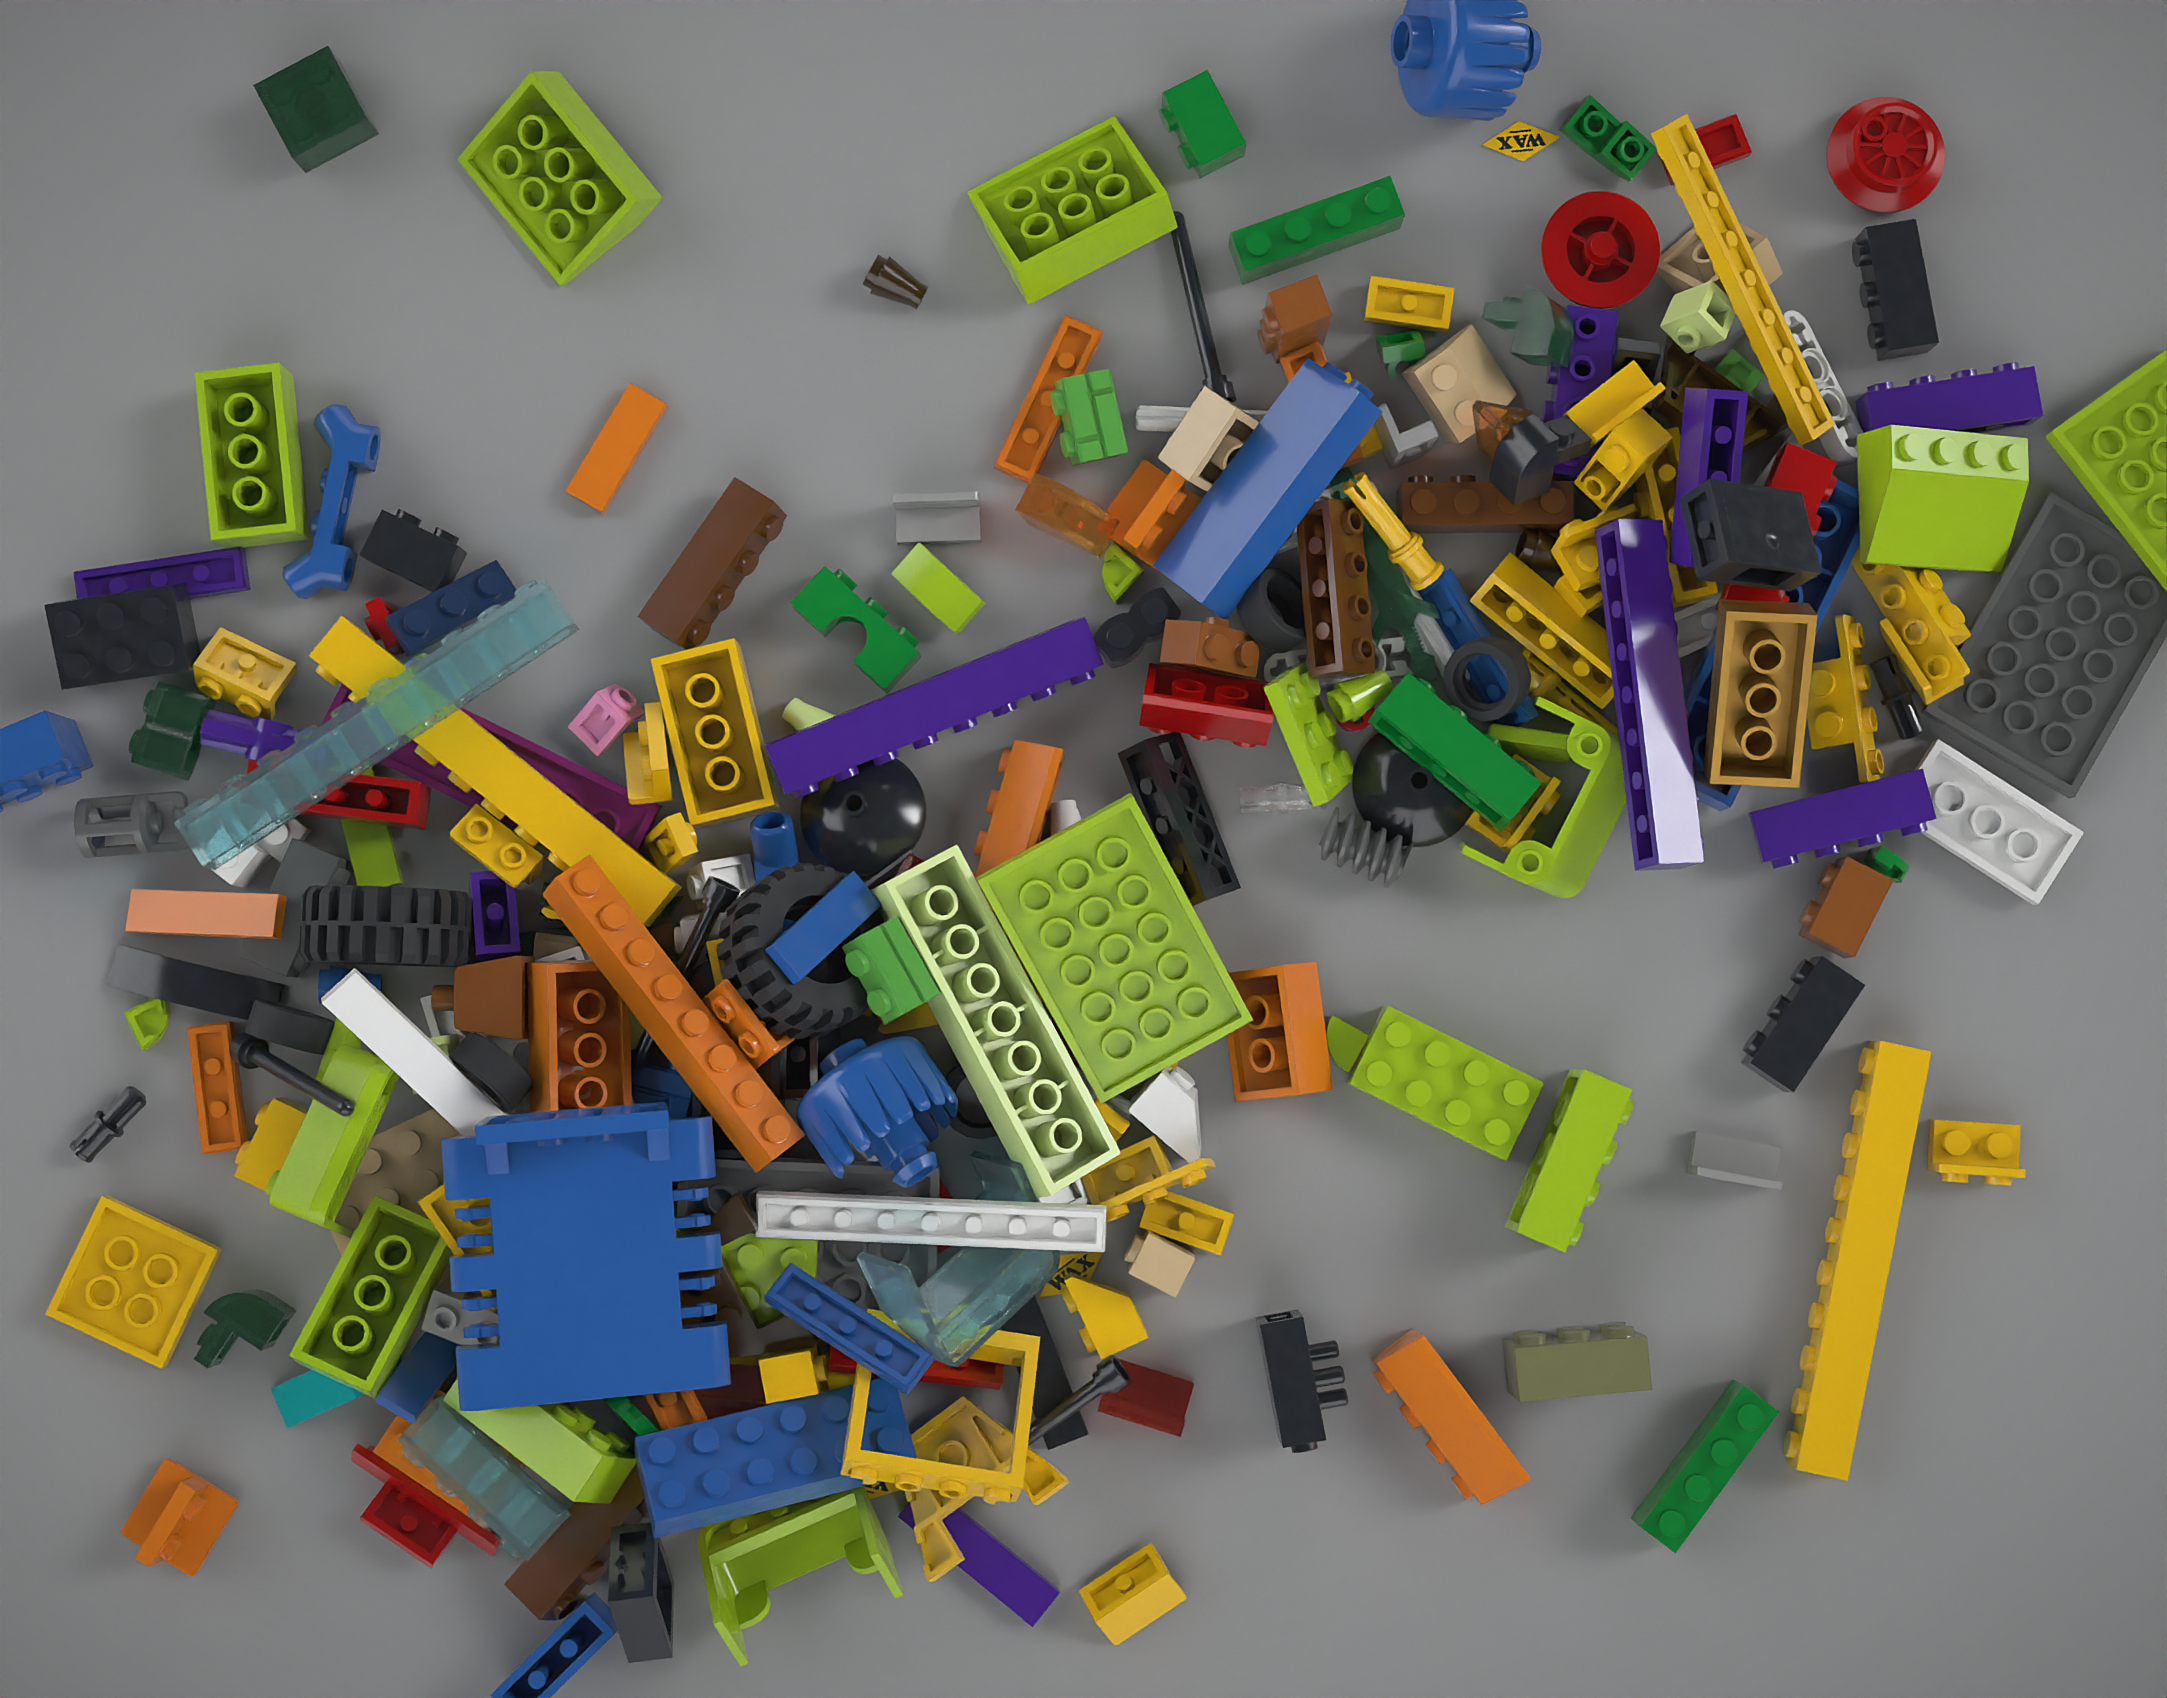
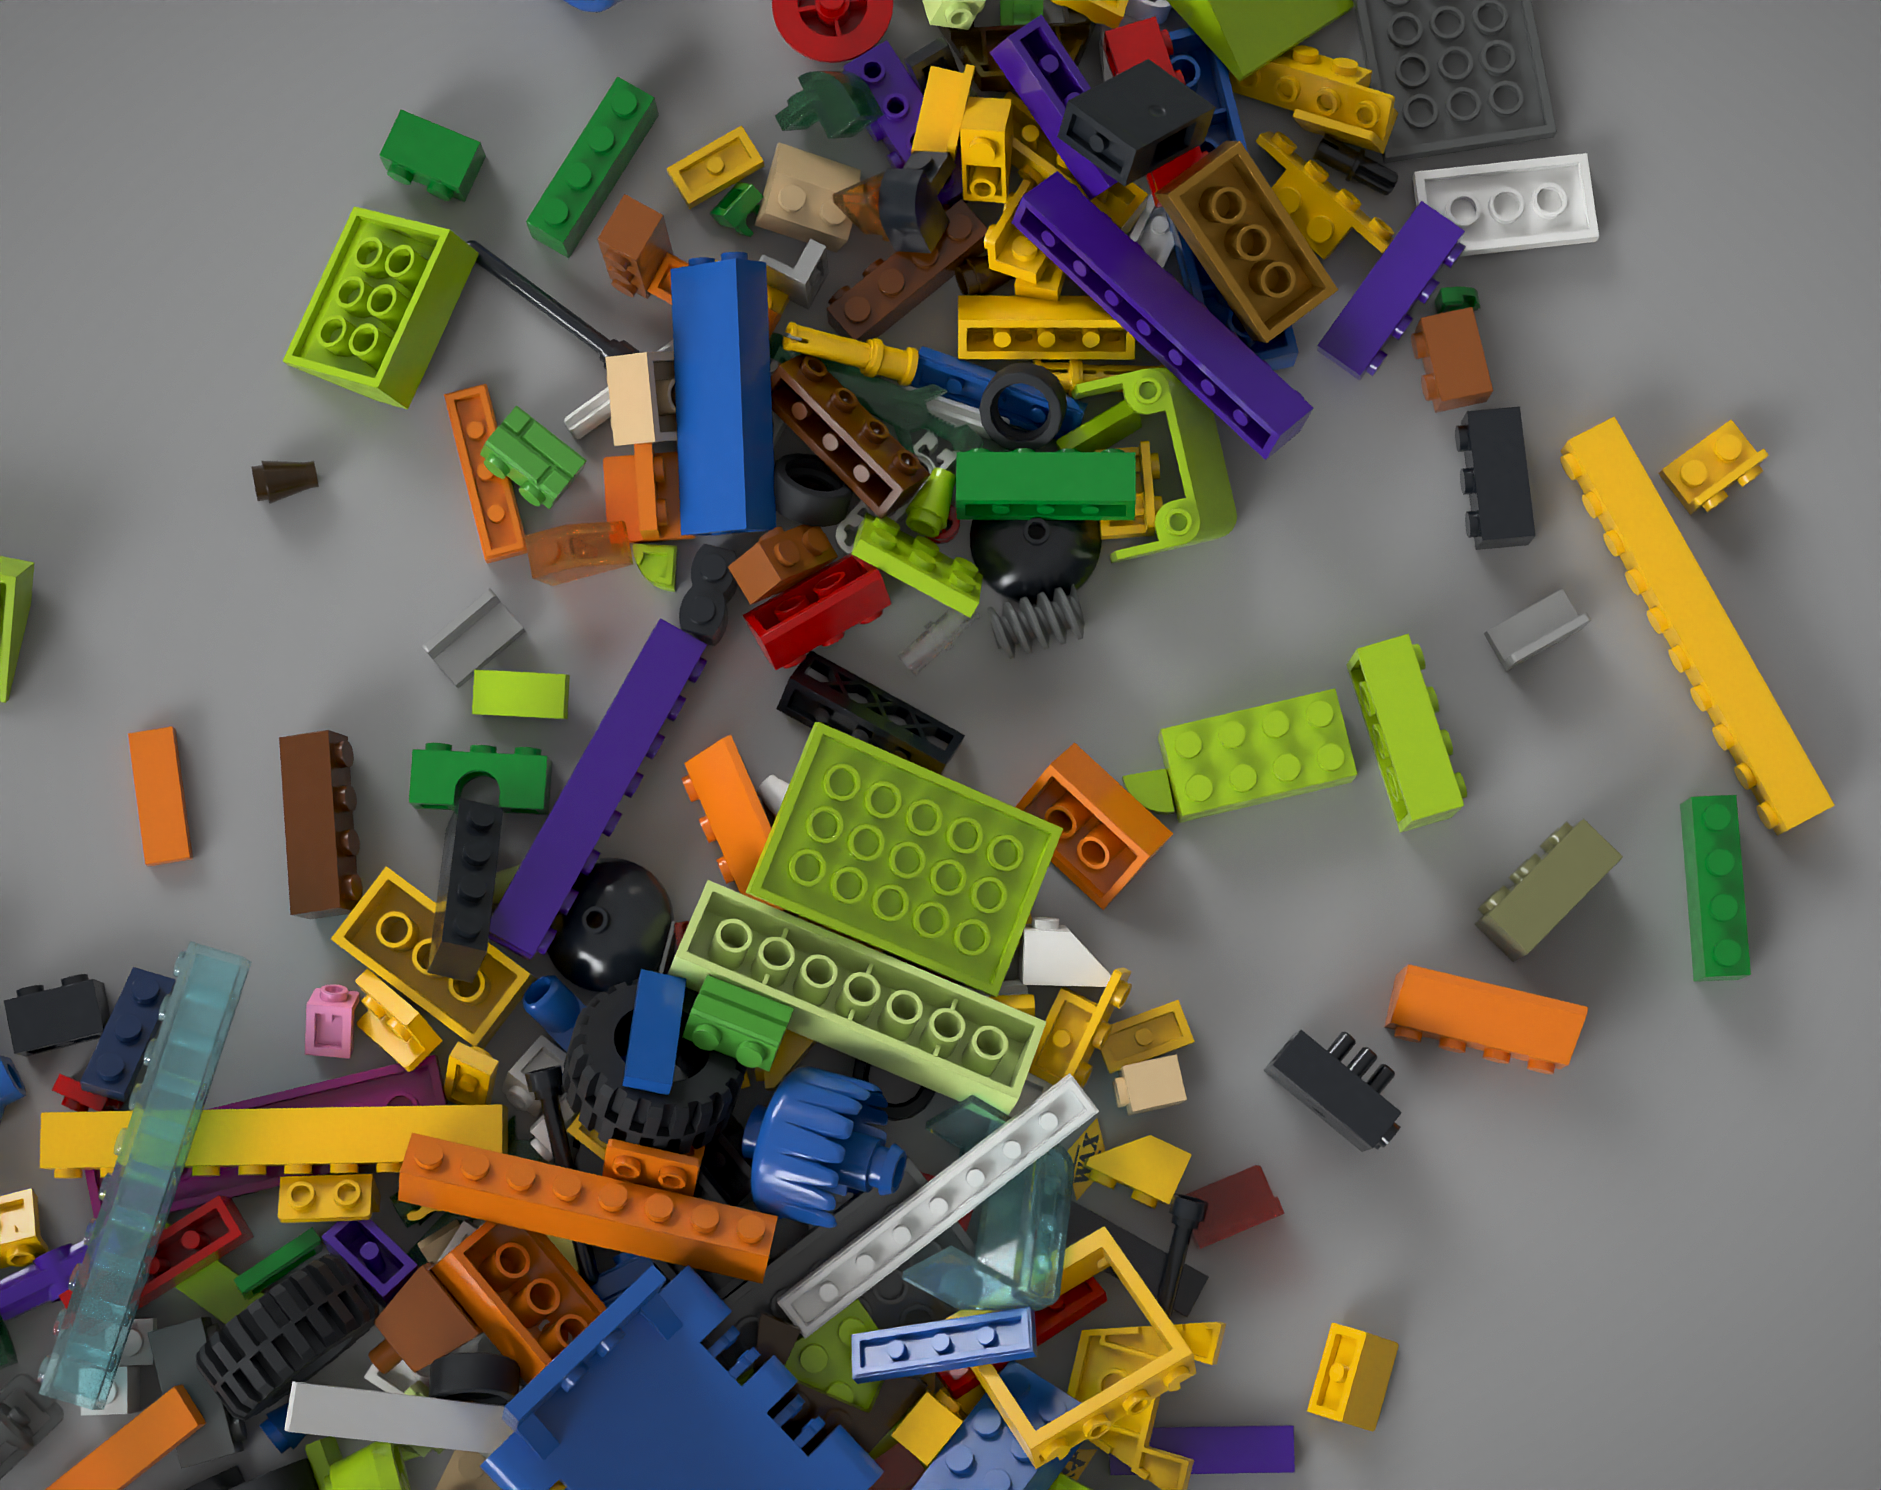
camera: 45 degrees left, 5 degrees down
(425, 865) = (279, 1264): none -> green tile
(776, 705) = (465, 891): none -> black brick

